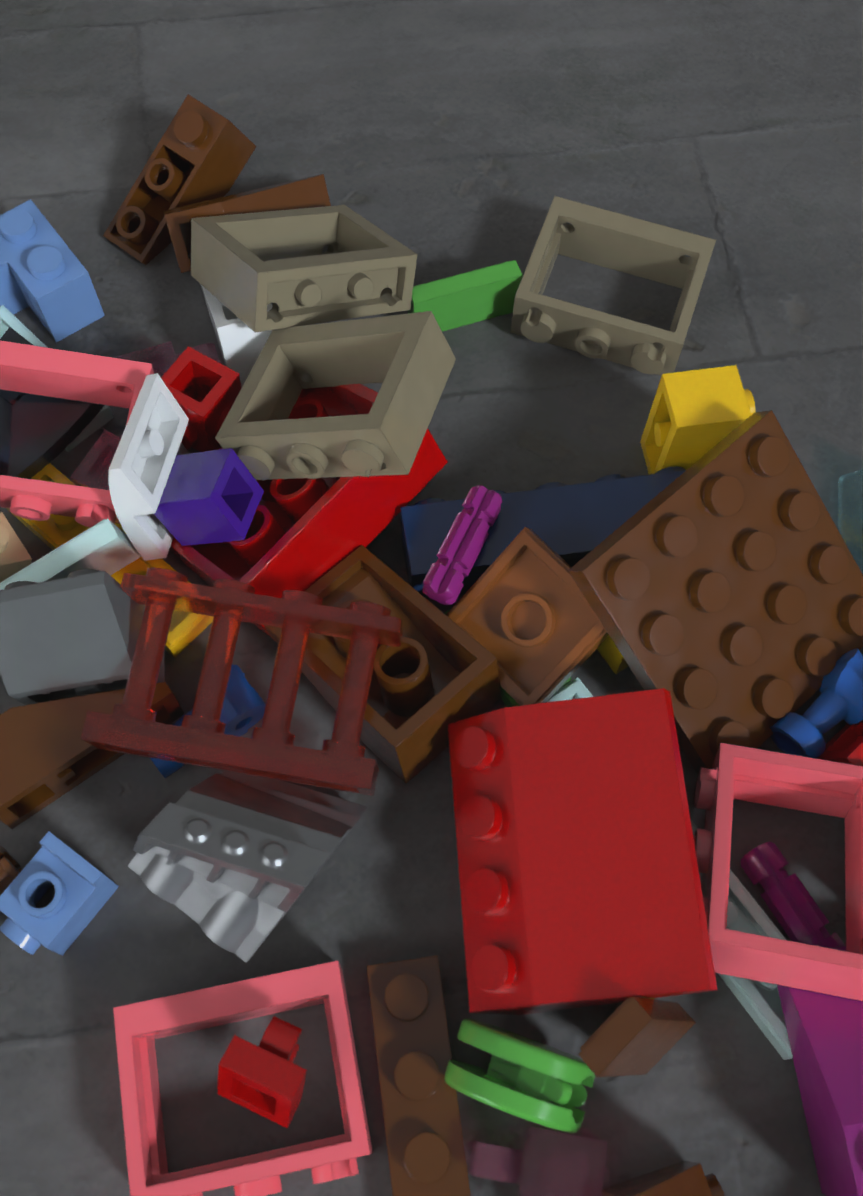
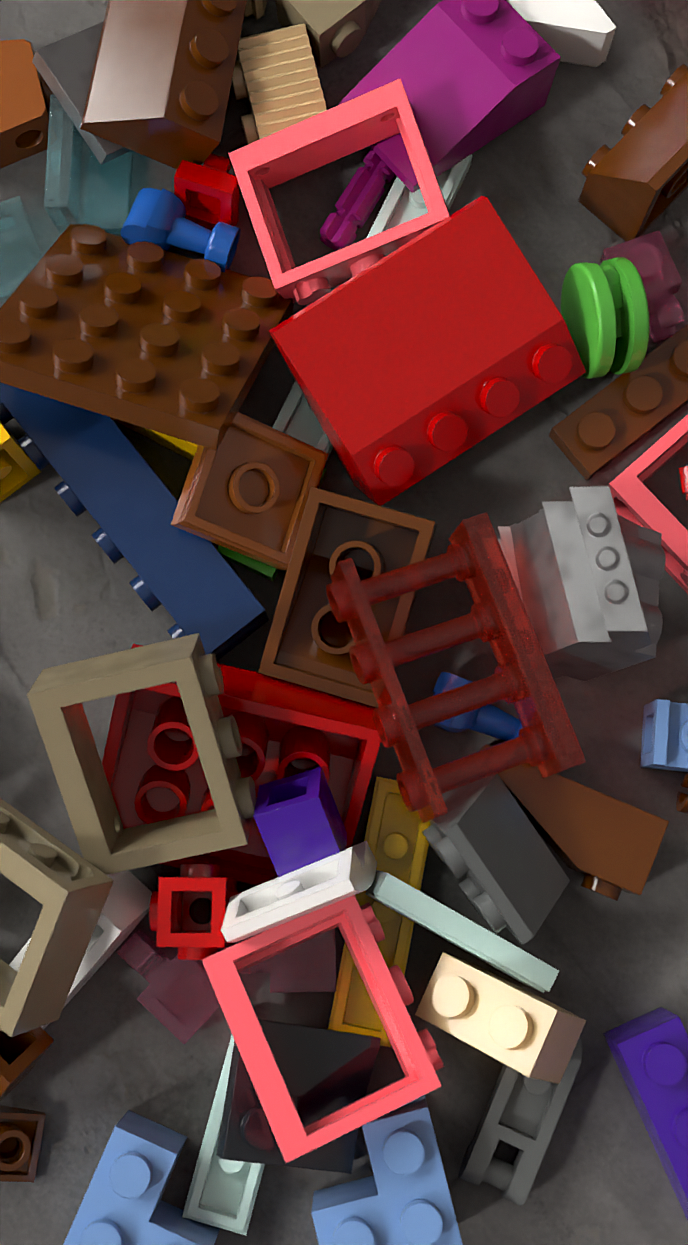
camera: 115 degrees left, 15 degrees up
(462, 545) = (216, 575): magenta axle -> none
(635, 1037) = (546, 247): reddish brown tile -> none

